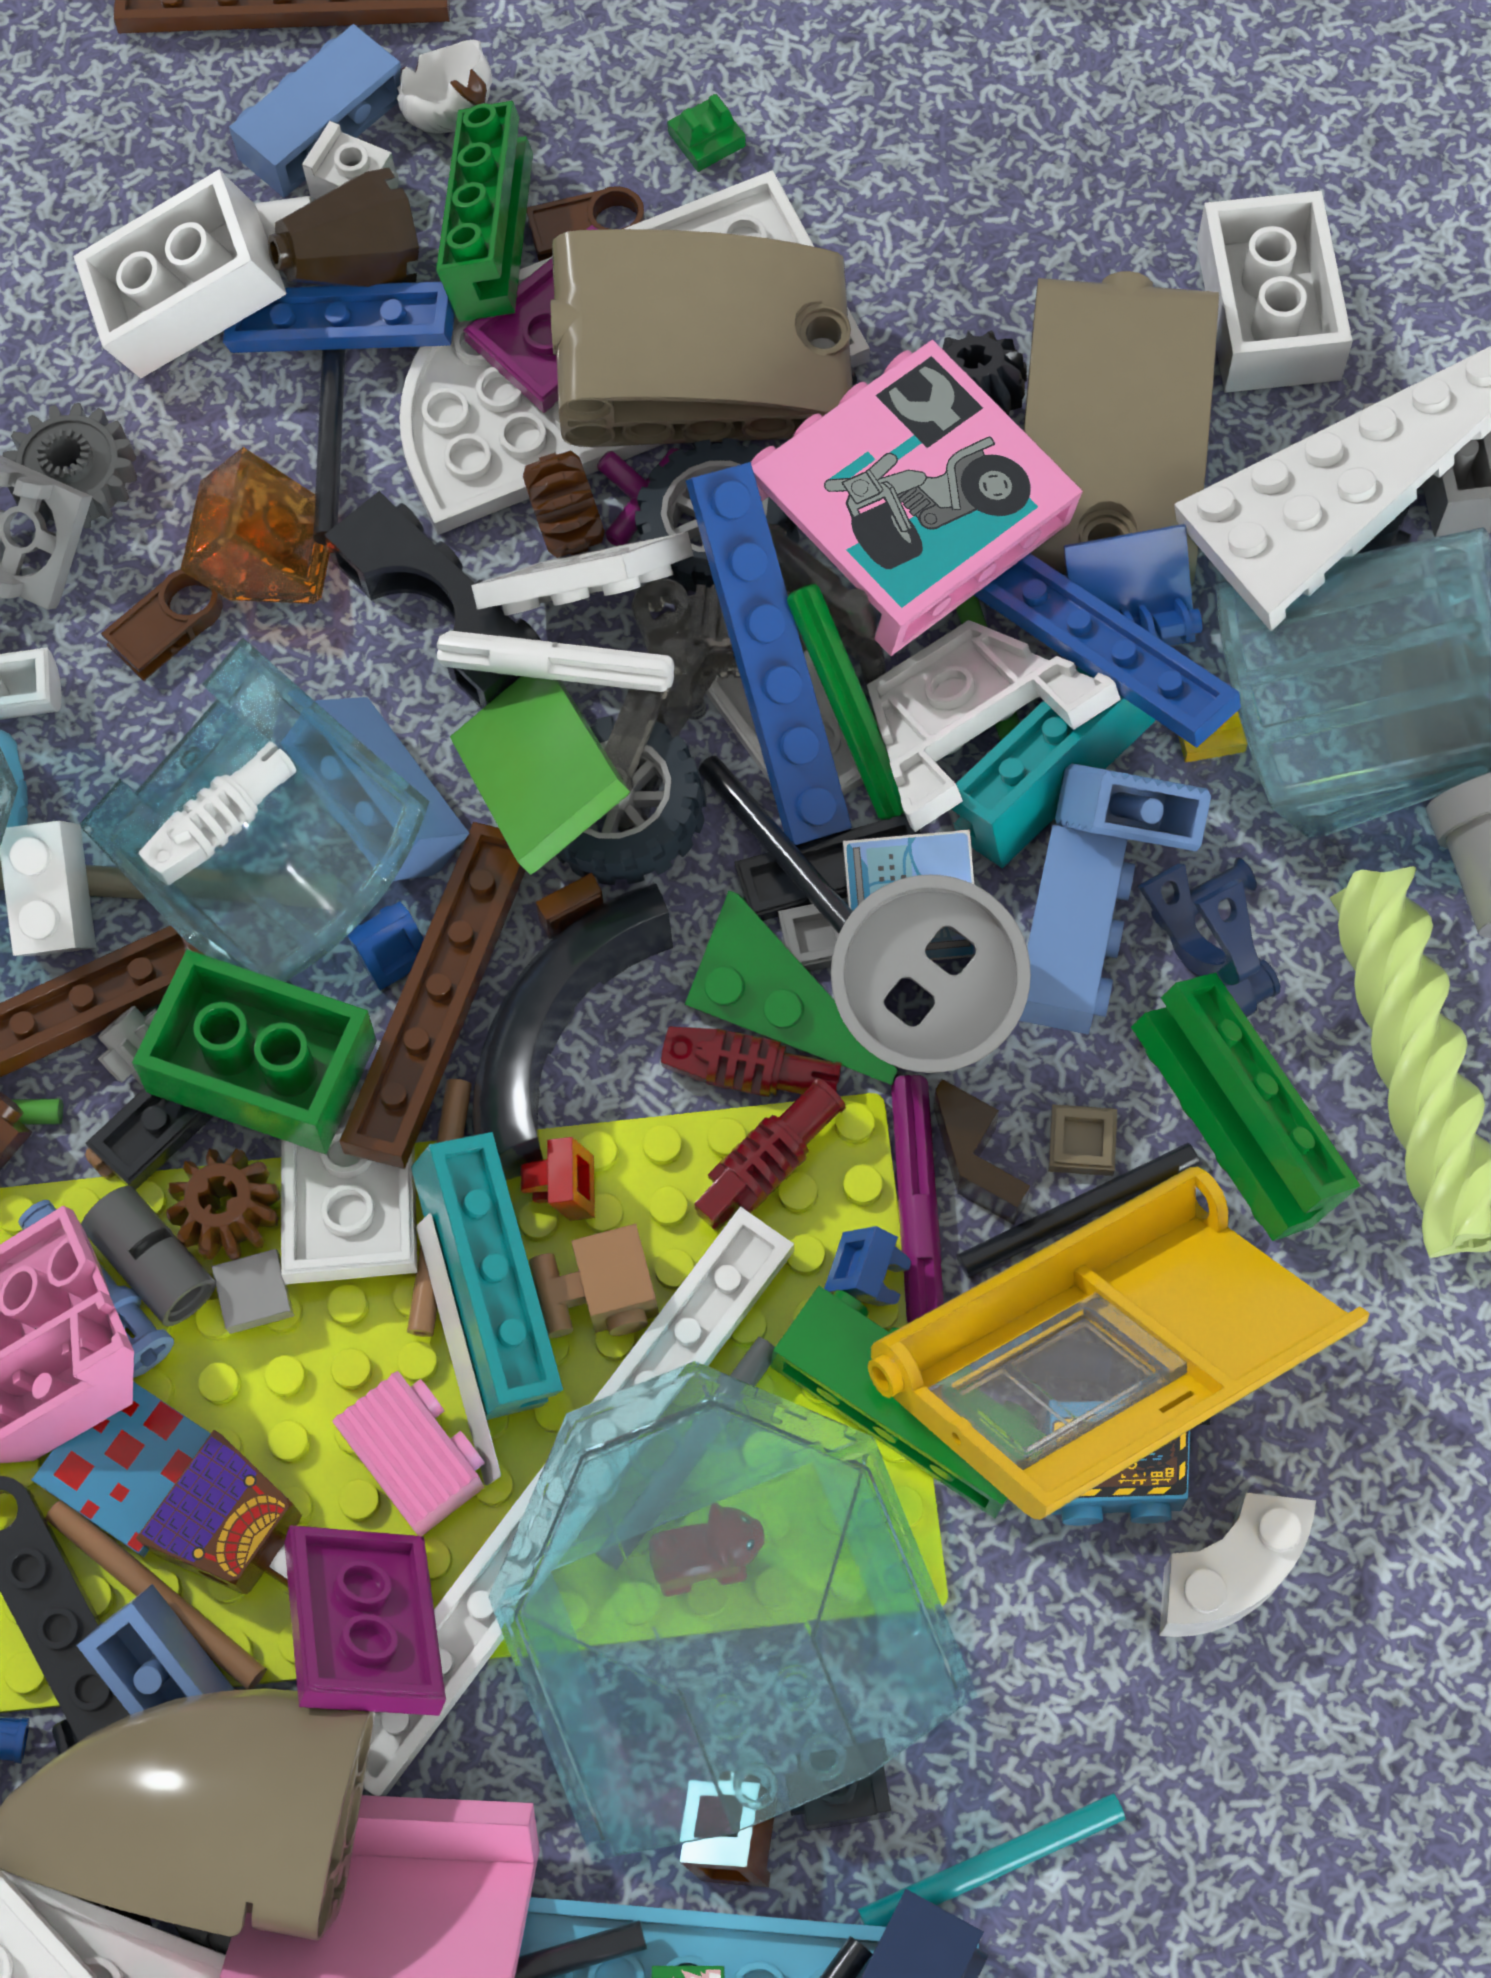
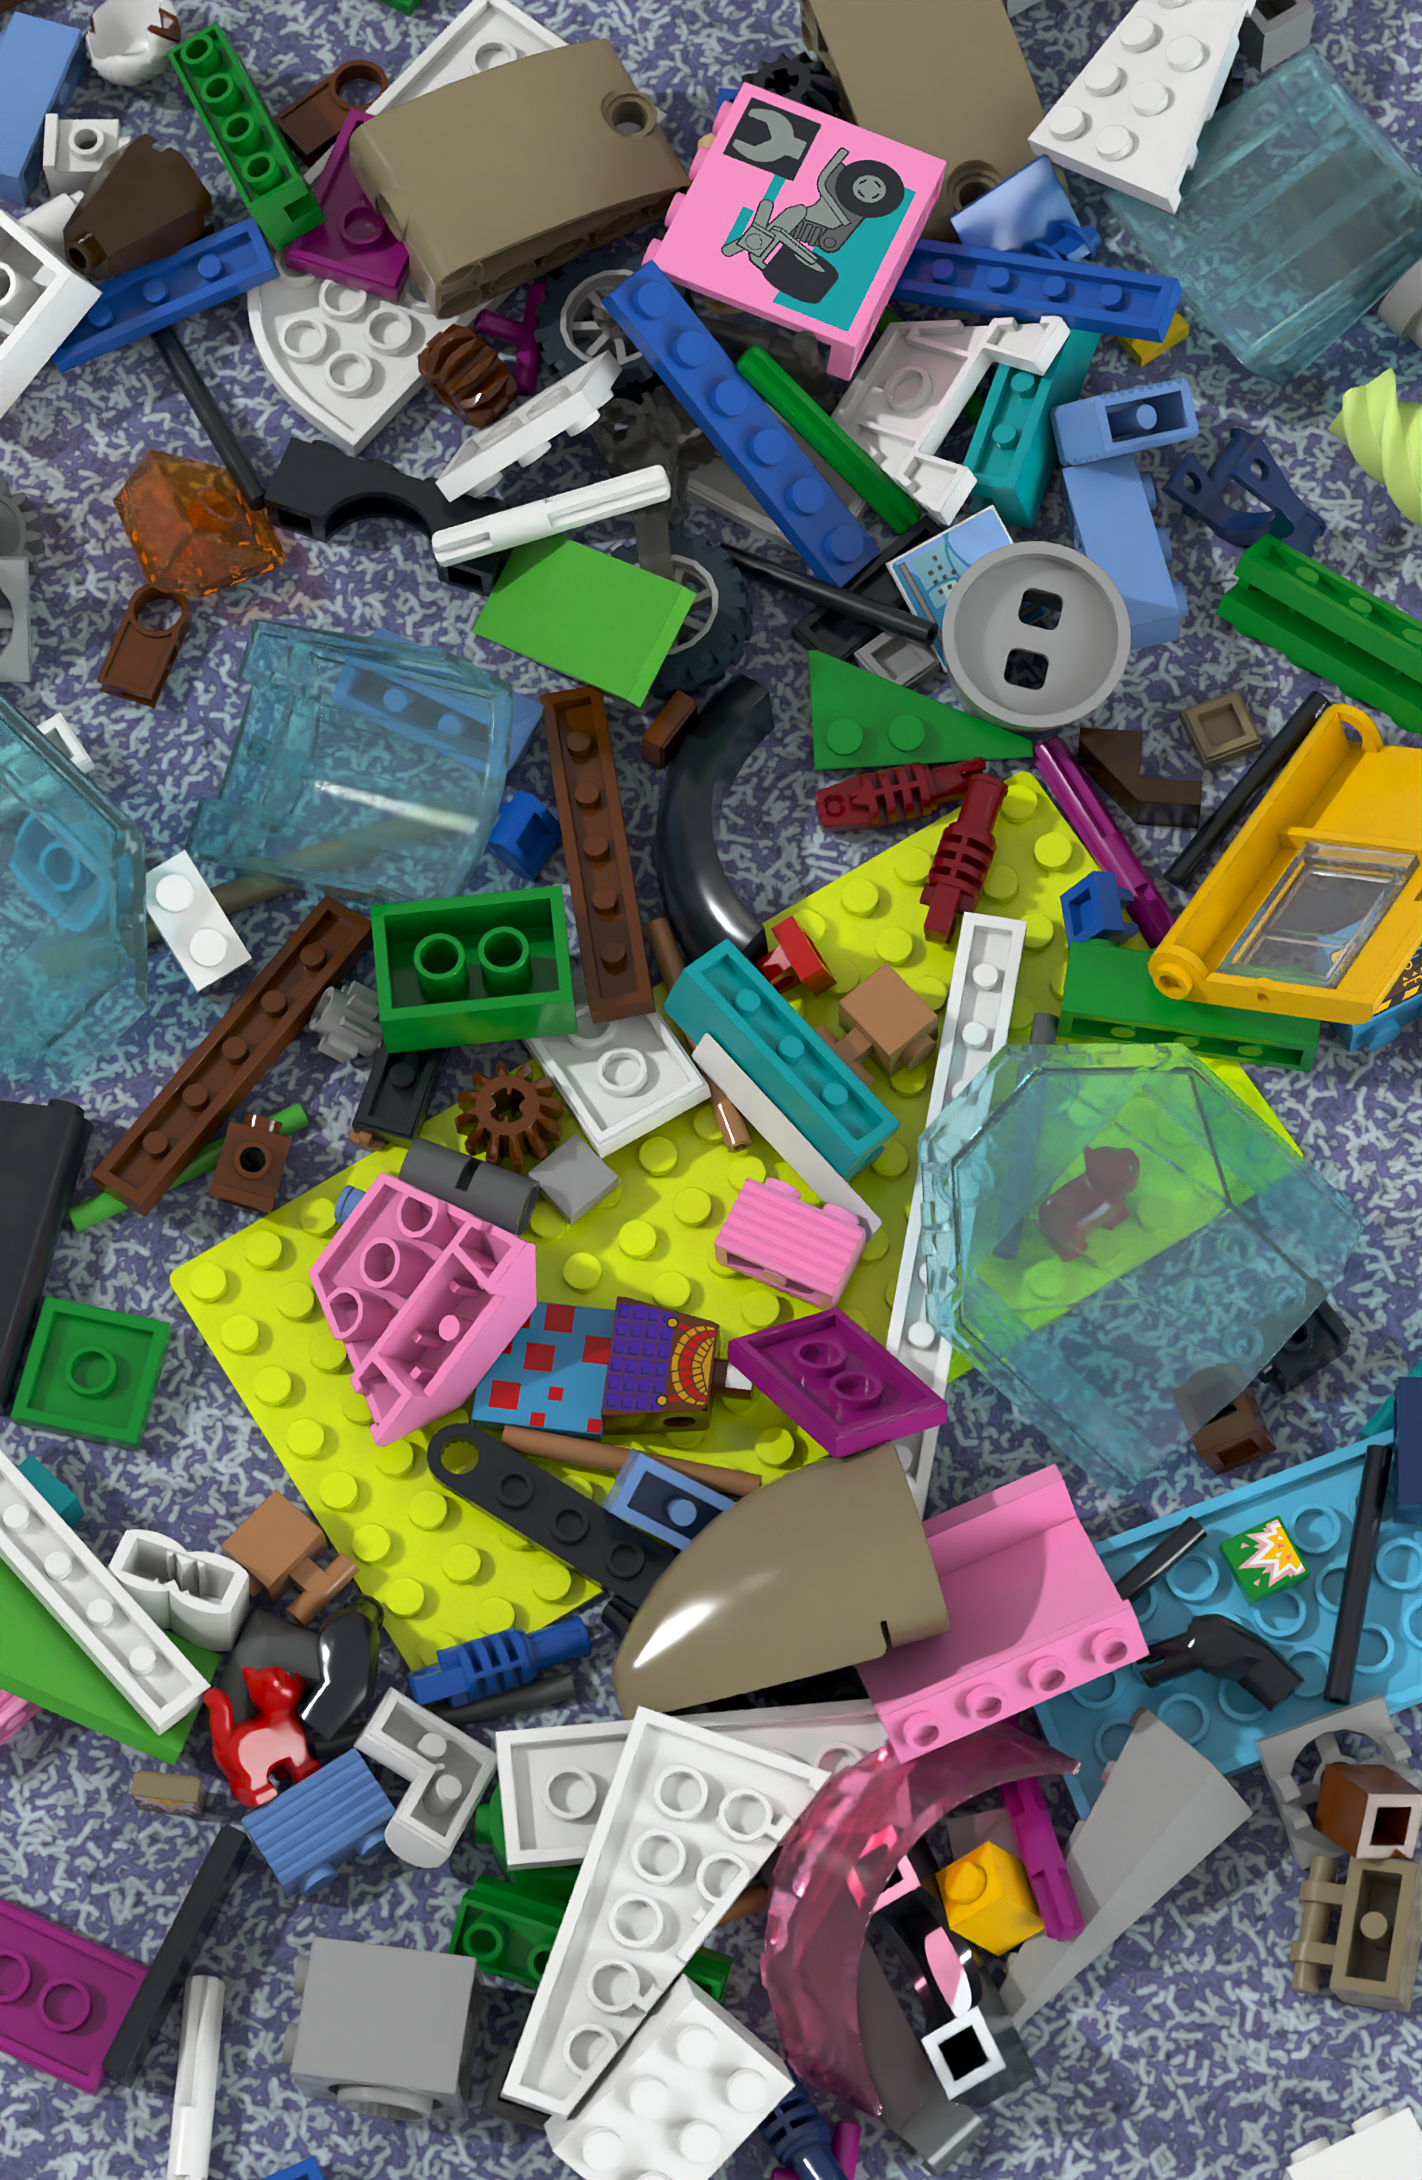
camera: 25 degrees left, 0 degrees up
(217, 813) = (316, 786): white hinge -> none

